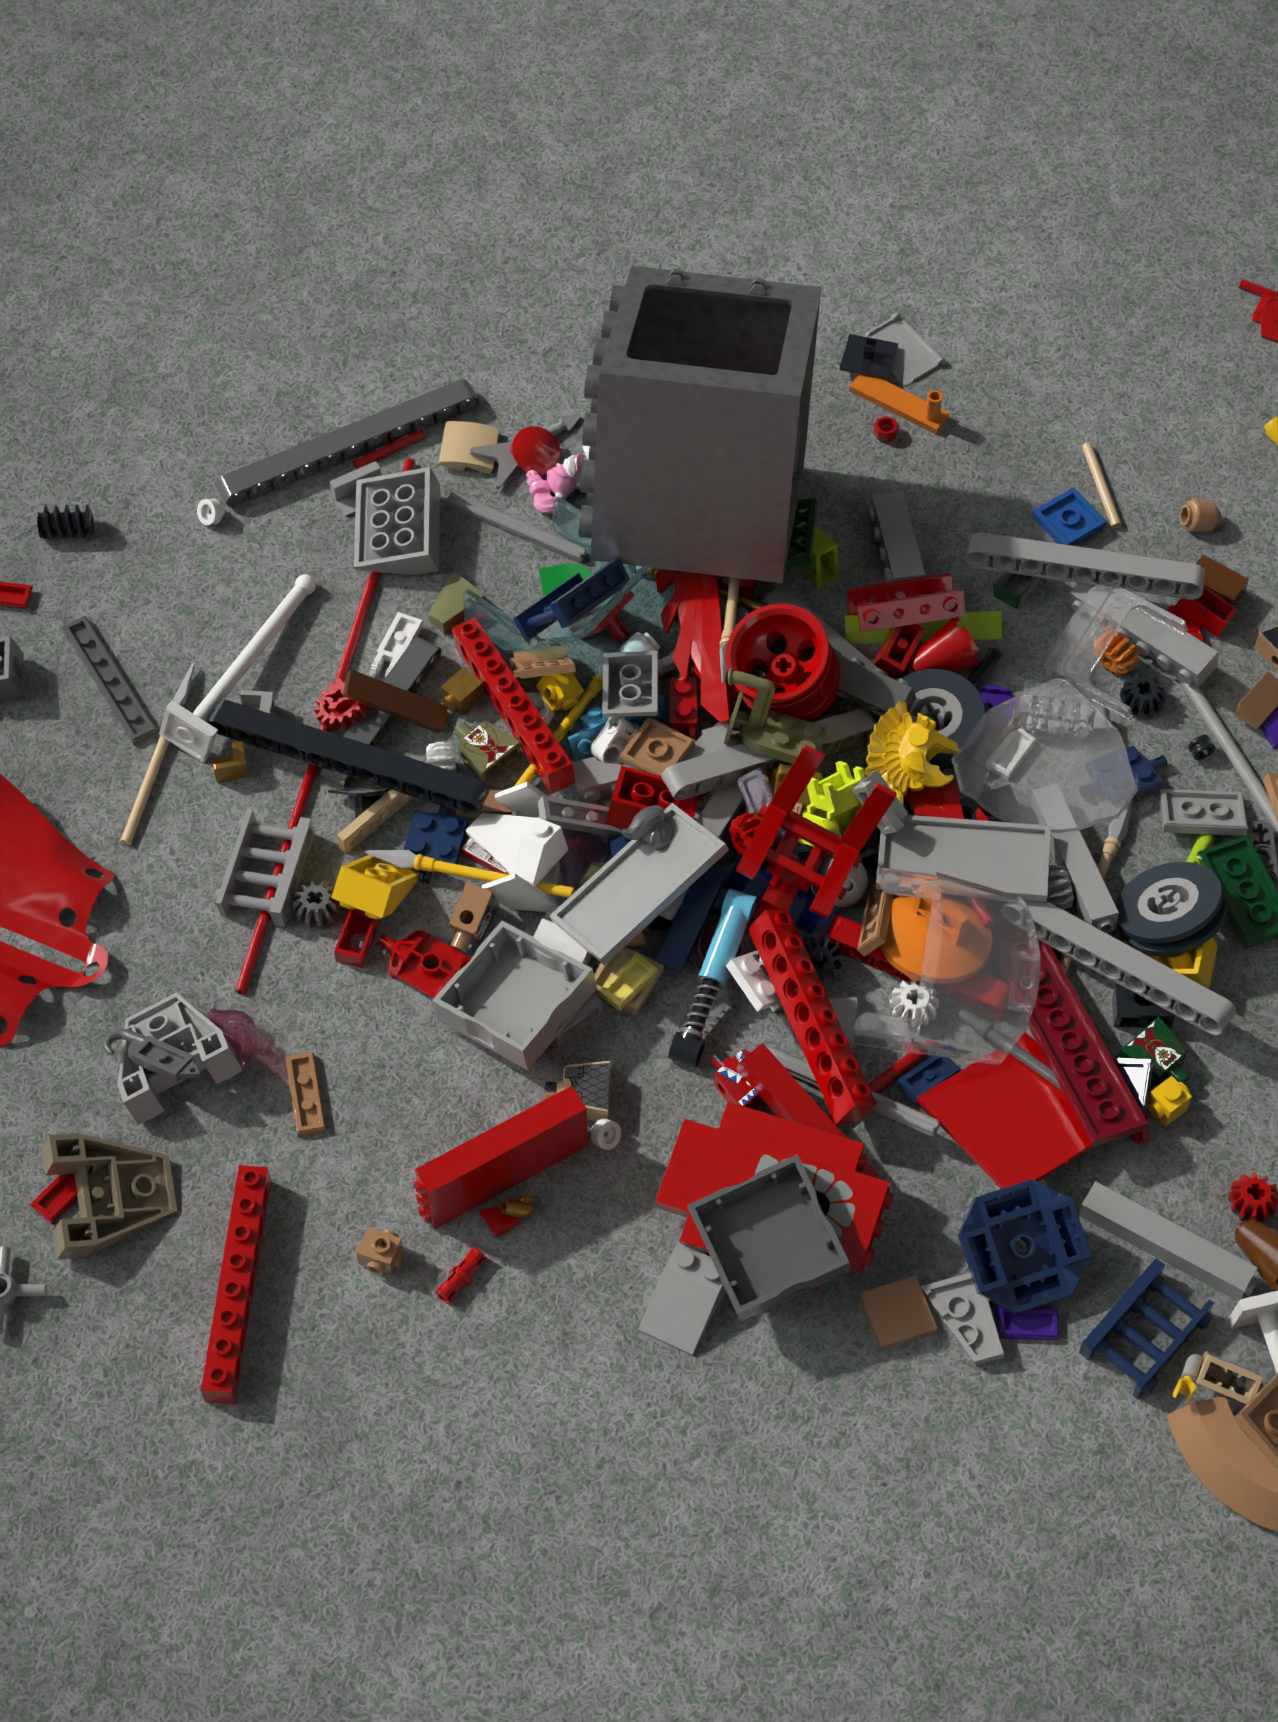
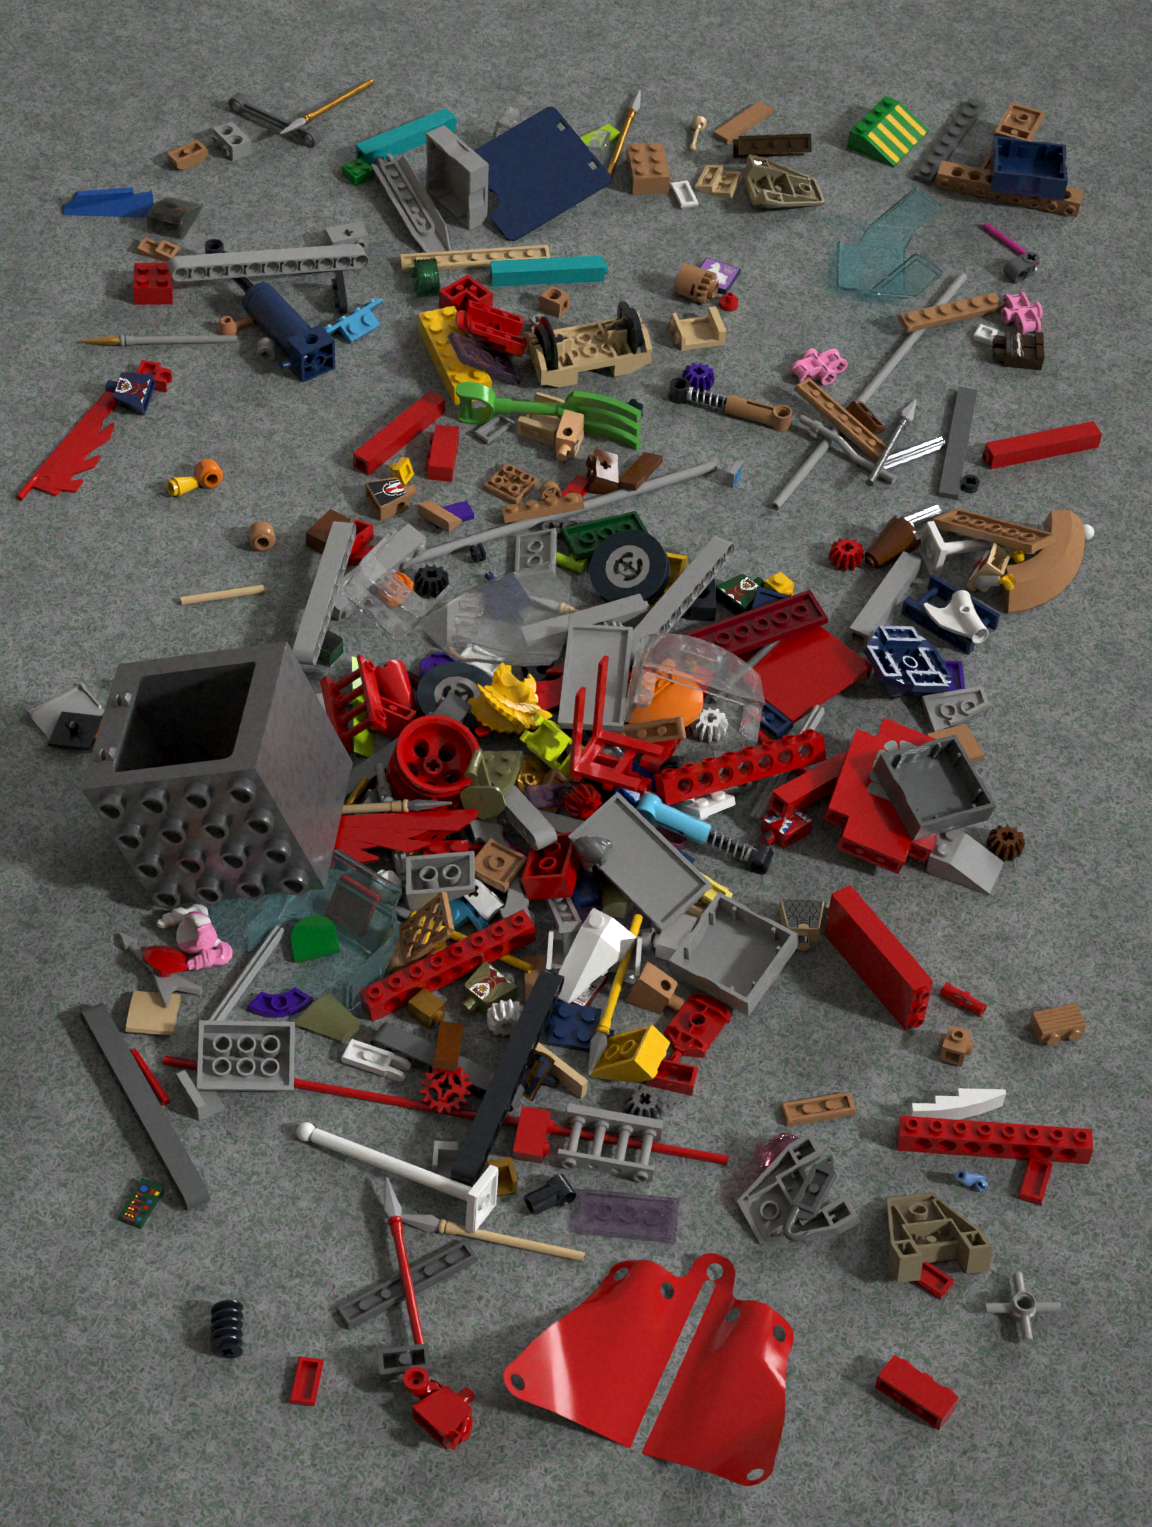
camera: 95 degrees left, 10 degrees down
(173, 888) = (628, 1216): none -> clear purple tile
(180, 1331) = (1035, 1181): none -> red tile
(187, 1251) = (972, 1180): none -> medium blue arm
(191, 660) = (393, 1211): none -> red piece
(205, 813) = (555, 1192): none -> black piece
(210, 511) = (219, 1211): white tile -> none
(230, 450) = (141, 1203): none -> dark green tile
(278, 788) = (532, 1135): none -> red brick
(295, 1253) = (963, 1105): none -> white slope
(412, 1383) = (1057, 1024): none -> medium nougat brick
(479, 561) = (280, 1005): none -> dark purple tile
(572, 599) = (378, 884): dark blue fence -> none
(720, 1366) = (1006, 842): none -> reddish brown gear
(891, 820) = (560, 713): light grey panel -> none
(1069, 518) = (258, 613): blue plate -> none
(1122, 1325) = (959, 617): none -> white pin

